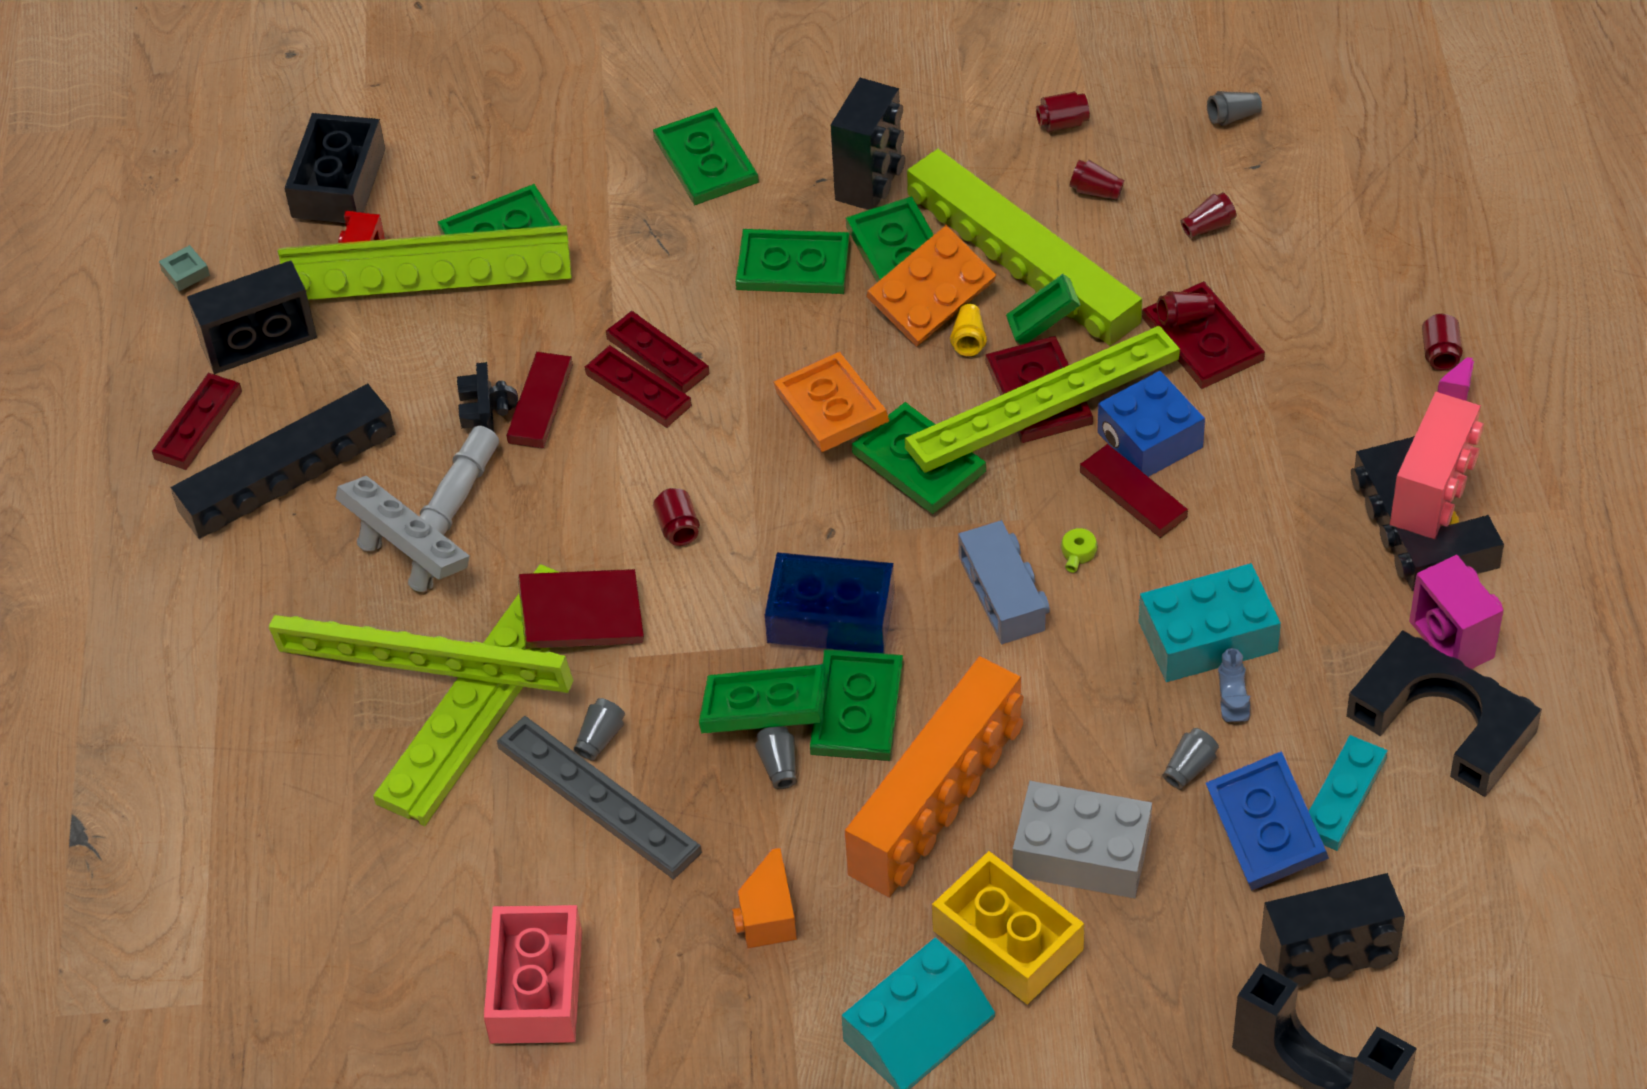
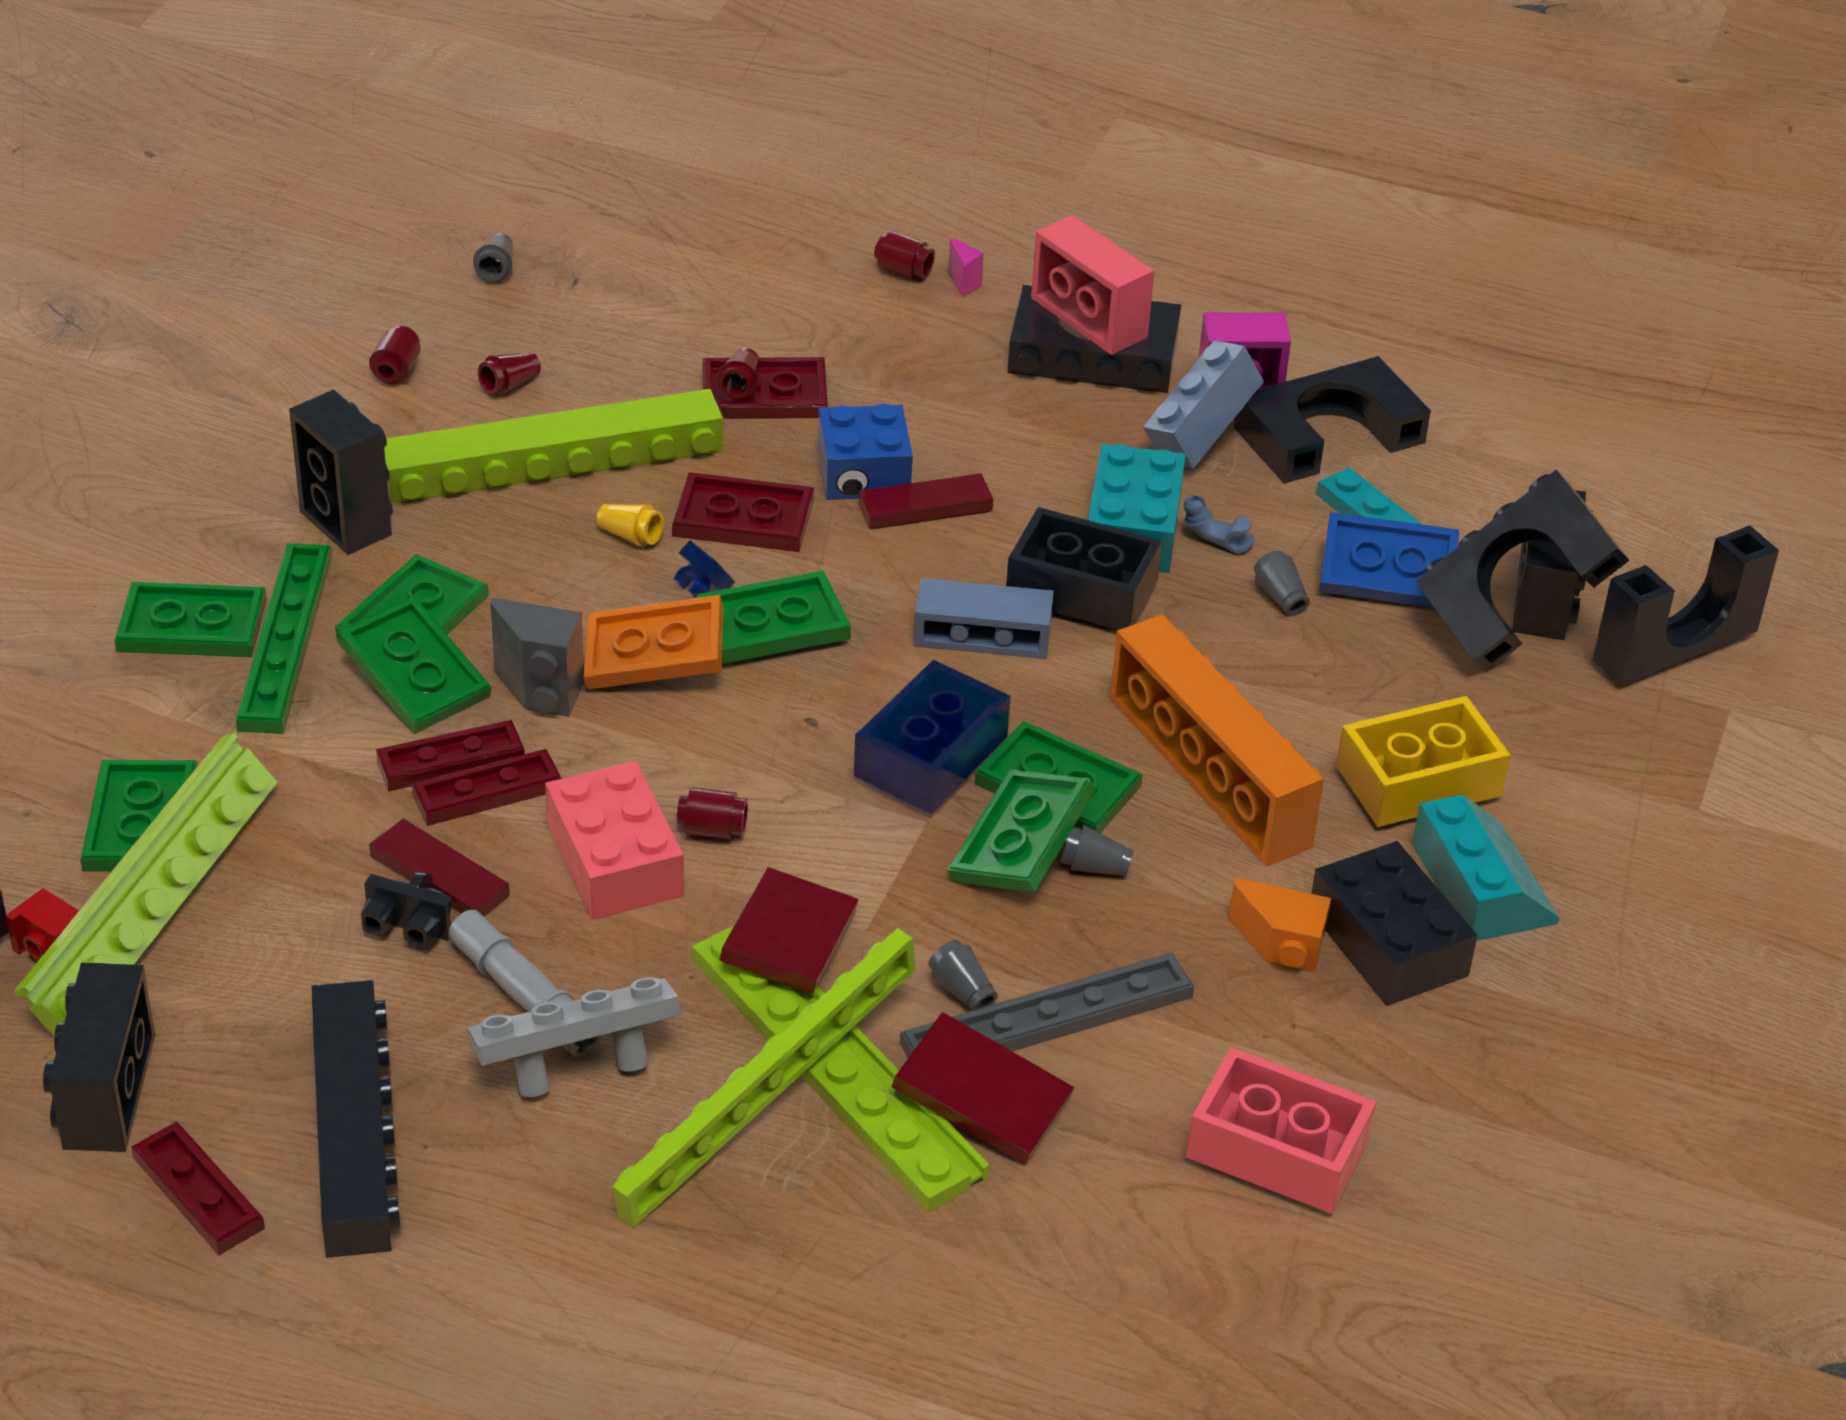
camera: 70 degrees left, 10 degrees down
(489, 783) = (983, 1087): none -> dark red tile
(612, 473) = (614, 839): none -> coral brick
(720, 210) = (284, 639): none -> green tile
(726, 287) = (414, 664): none -> green tile
(757, 345) = (538, 654): none -> dark grey slope
(808, 972) = (1394, 923): none -> black brick
(888, 234) = (473, 527): green plate -> none
(931, 285) = (556, 519): orange plate -> none
(941, 394) = (702, 569): none -> clear blue tile
(1041, 399) = (781, 503): lime plate -> none
(1043, 310) = (659, 459): green tile -> none
(1078, 548) = (970, 561): lime piece -> none
(1082, 839) = (1339, 678): light grey brick -> none
(1095, 618) = (1090, 566): none -> black brick
(1210, 215) = (623, 320): dark red cone -> none
(1237, 874) = (1461, 581): none -> black arch
(1361, 609) = (1204, 402): none -> sand blue brick

